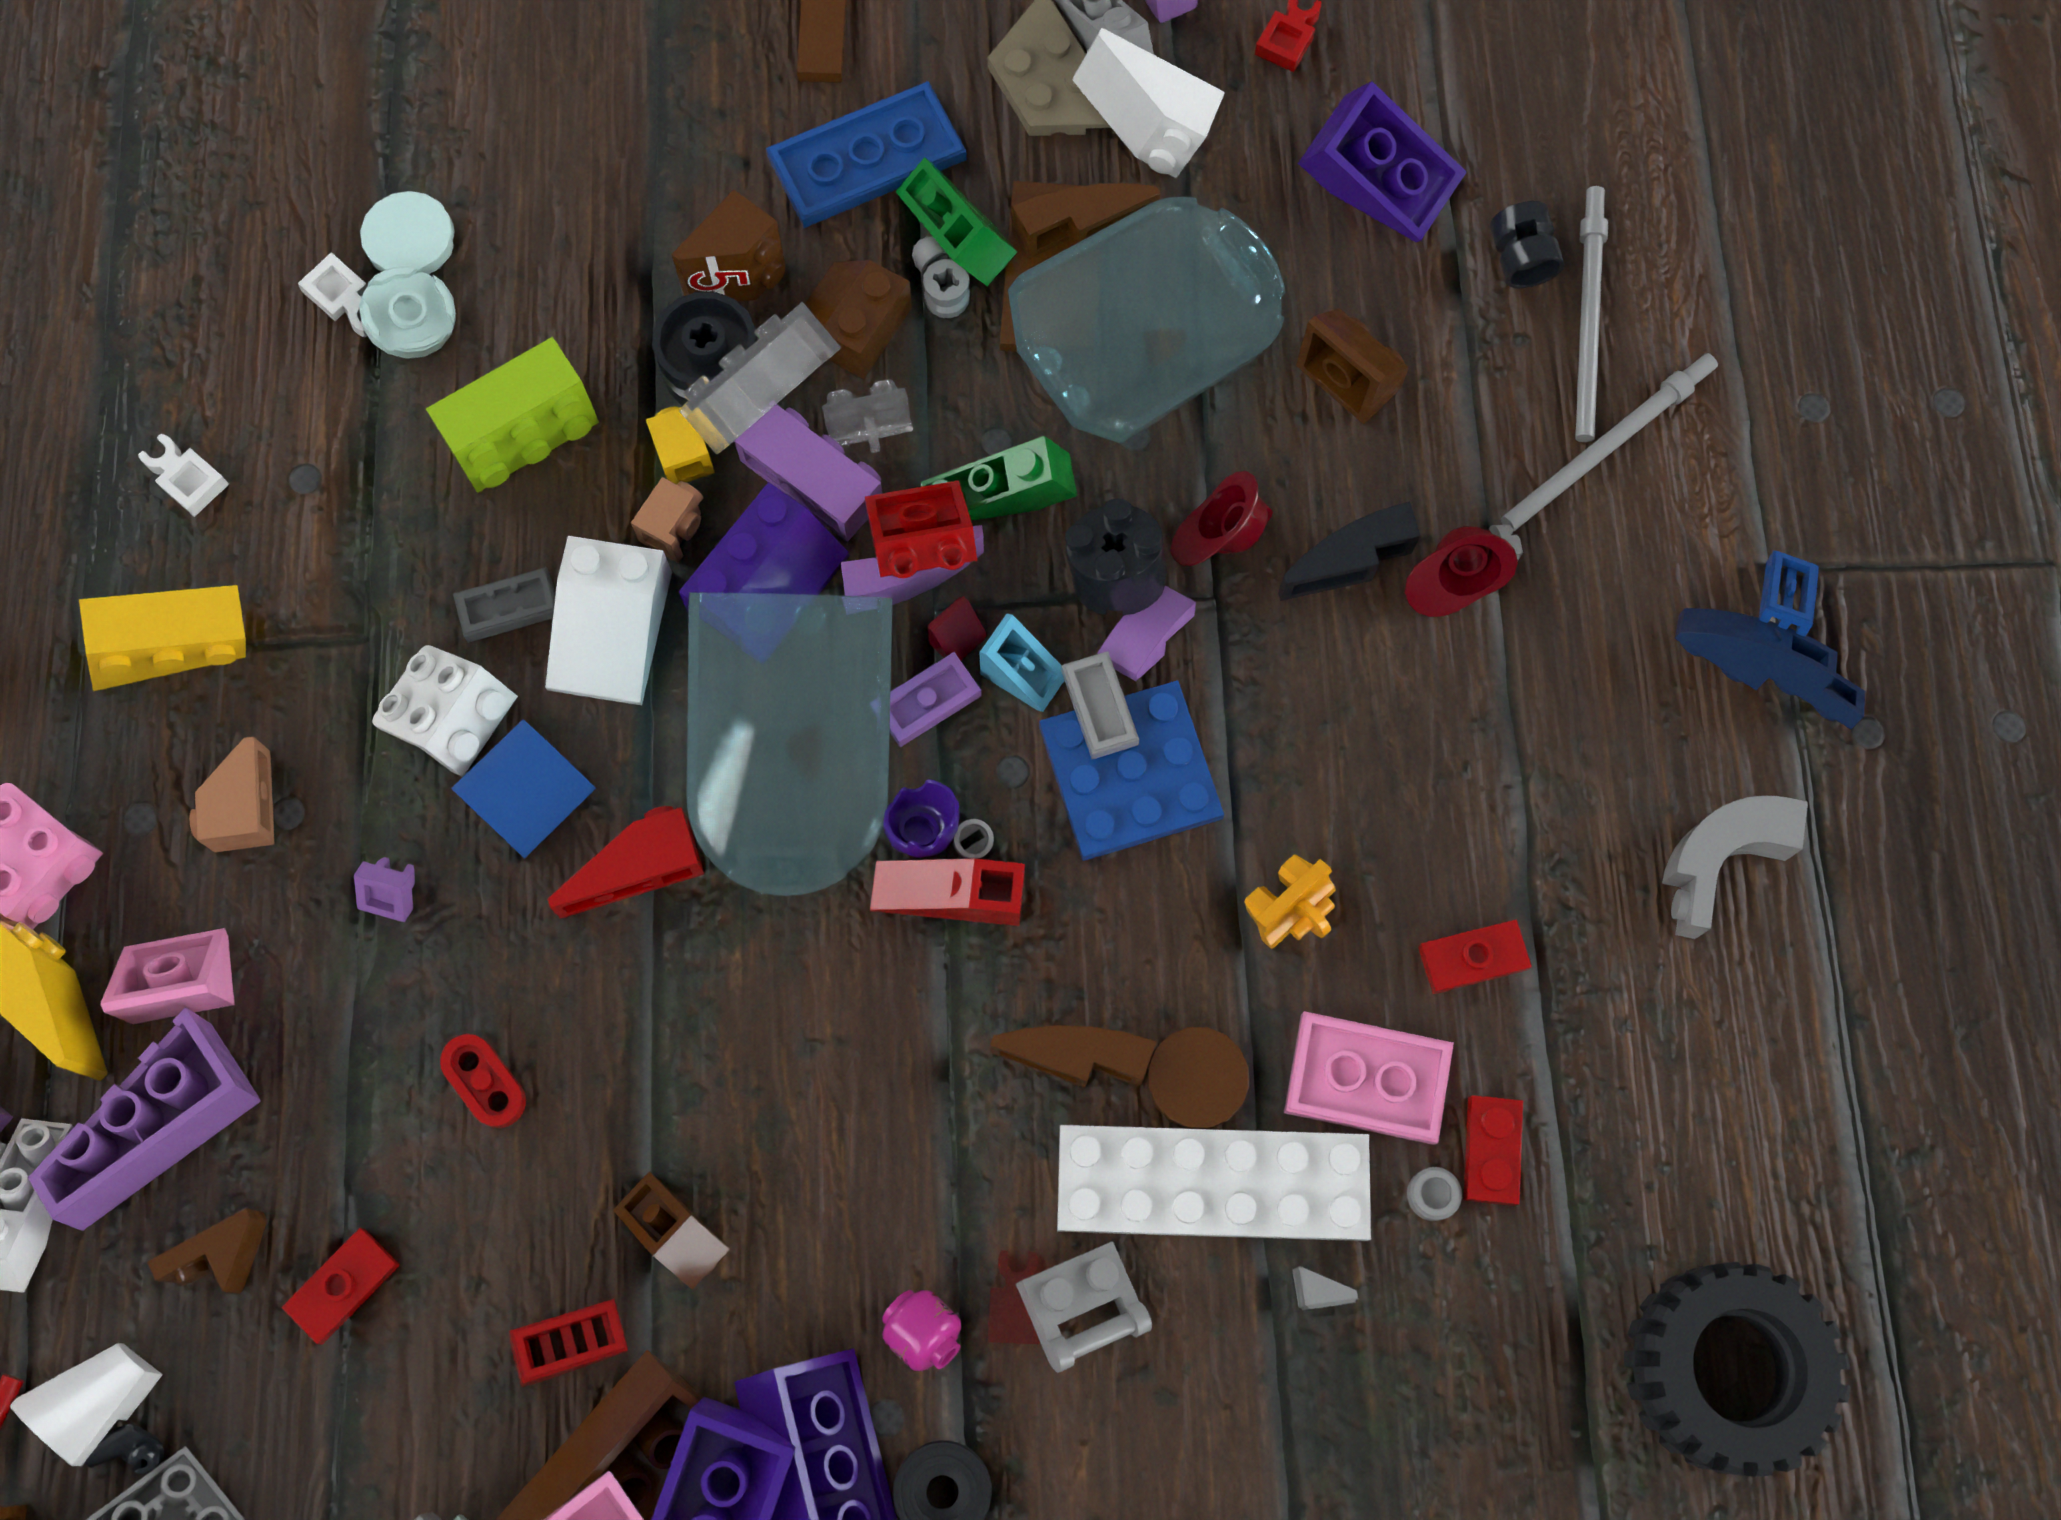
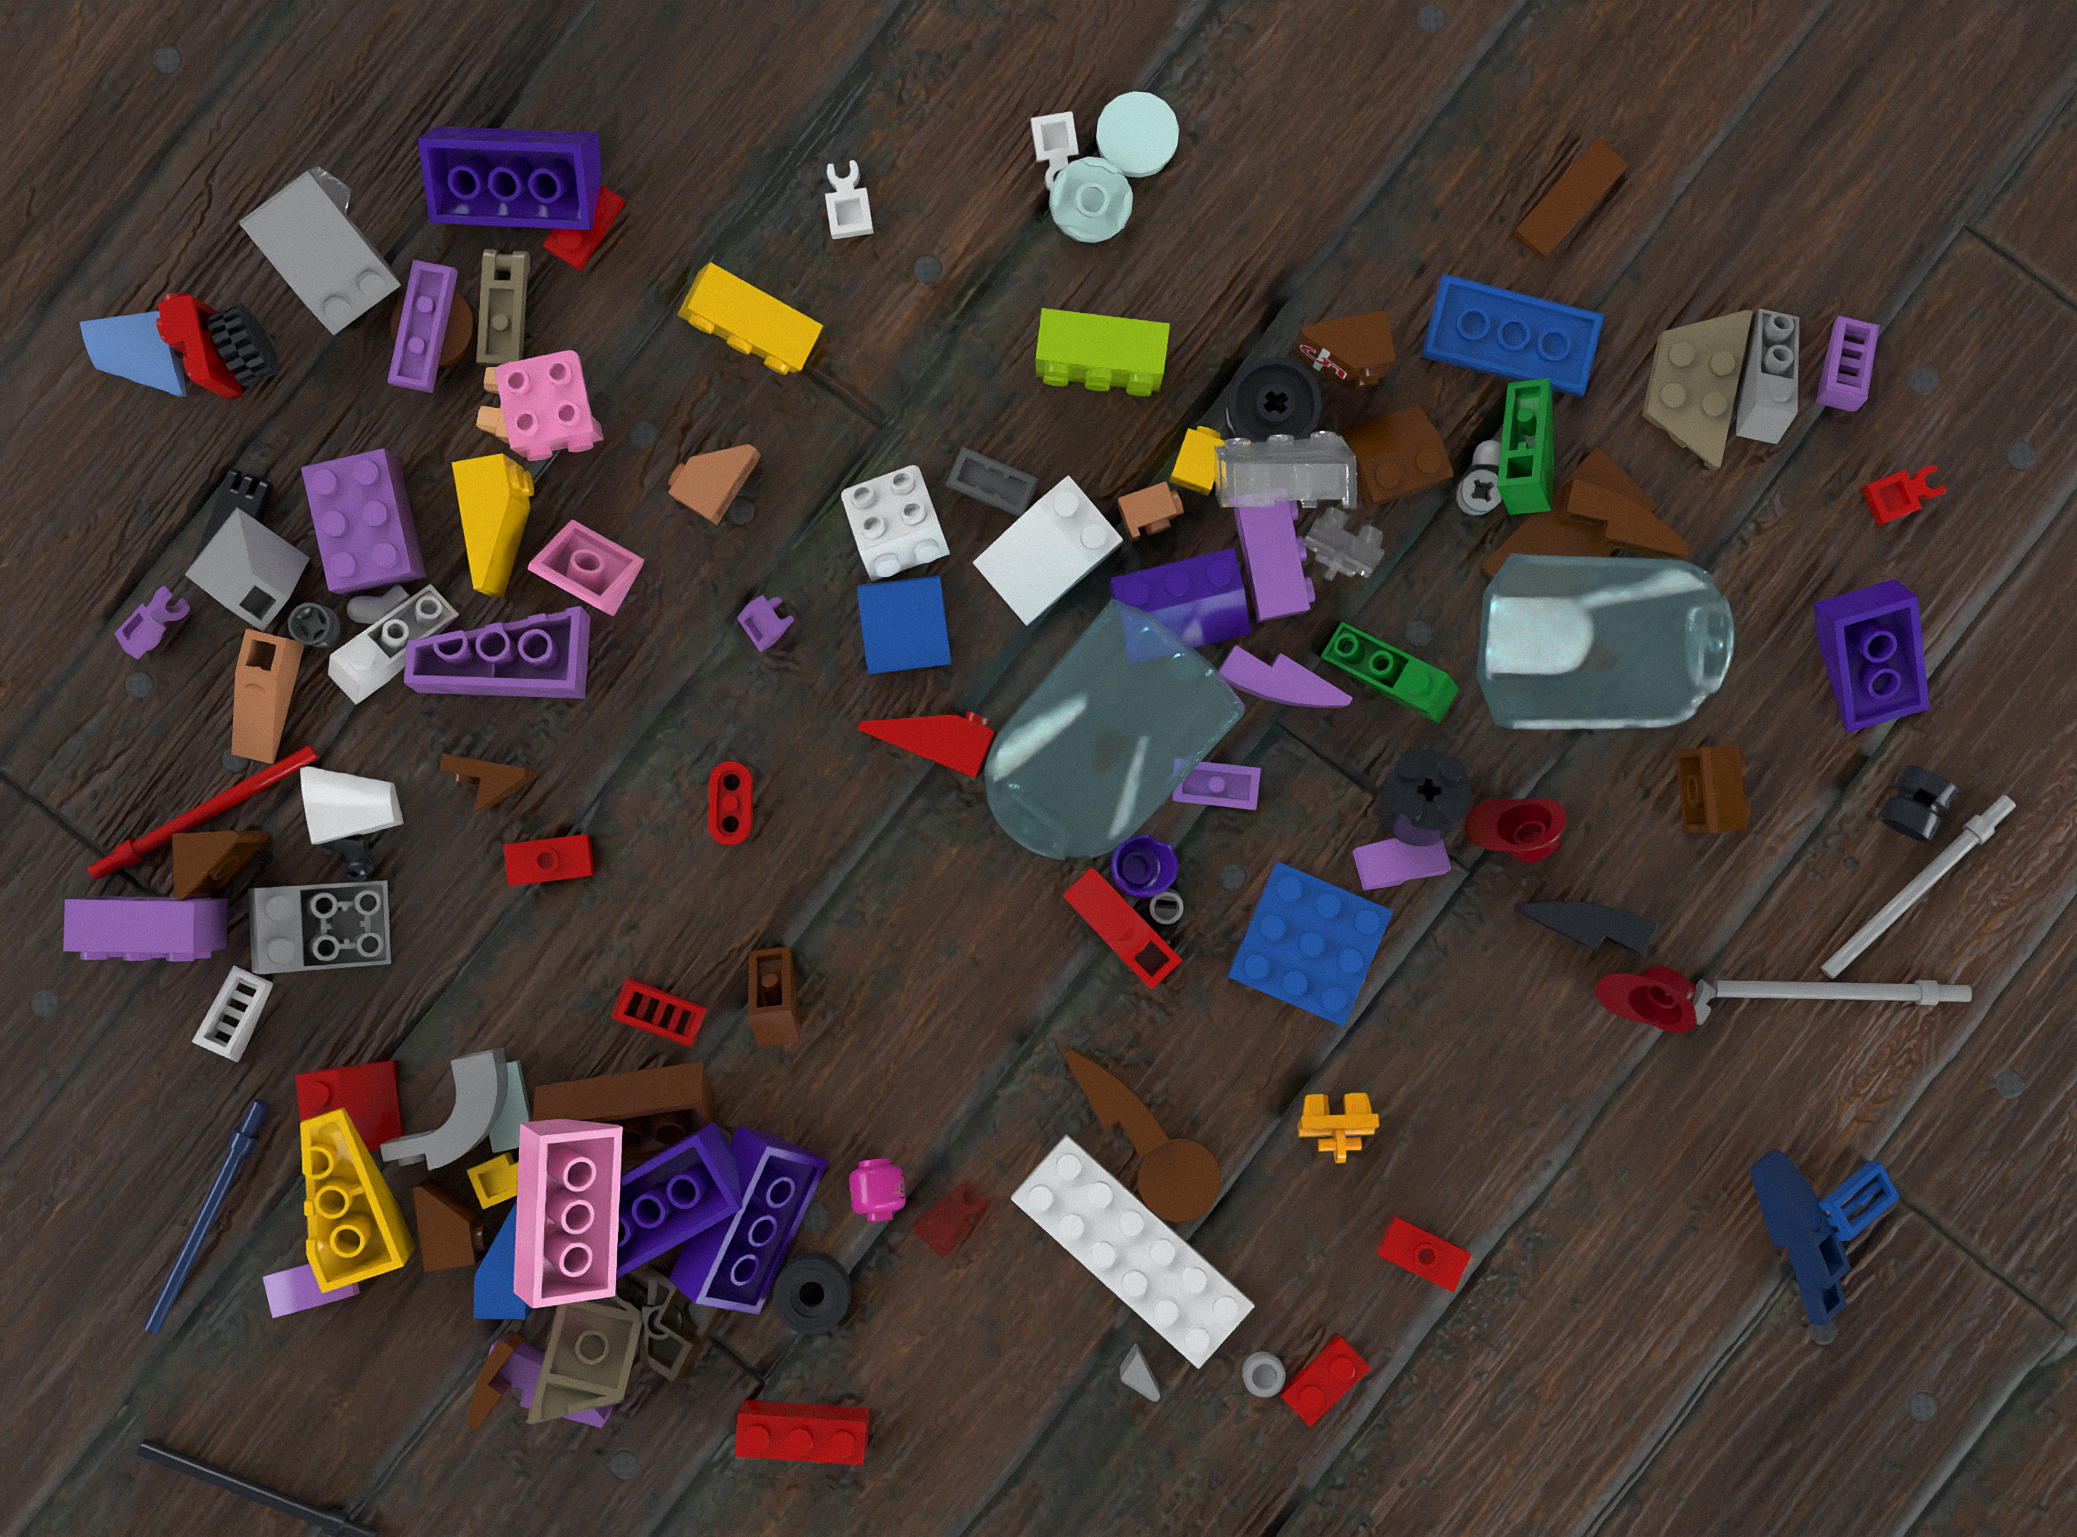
camera: 45 degrees right, 15 degrees up
(921, 529) = (1307, 671): red plate -> none
(956, 630) = (1275, 753): dark red slope -> none
(1020, 664) = (1298, 816): medium azure slope -> none
(1074, 1290) = (992, 1245): light grey plate -> none
(1100, 705) = (1325, 888): light grey tile -> none
(1148, 101) = (1741, 478): white slope -> none
(1369, 1078) = (1287, 1270): bright pink tile -> none
(1750, 825) = (1649, 1315): light grey arch -> none

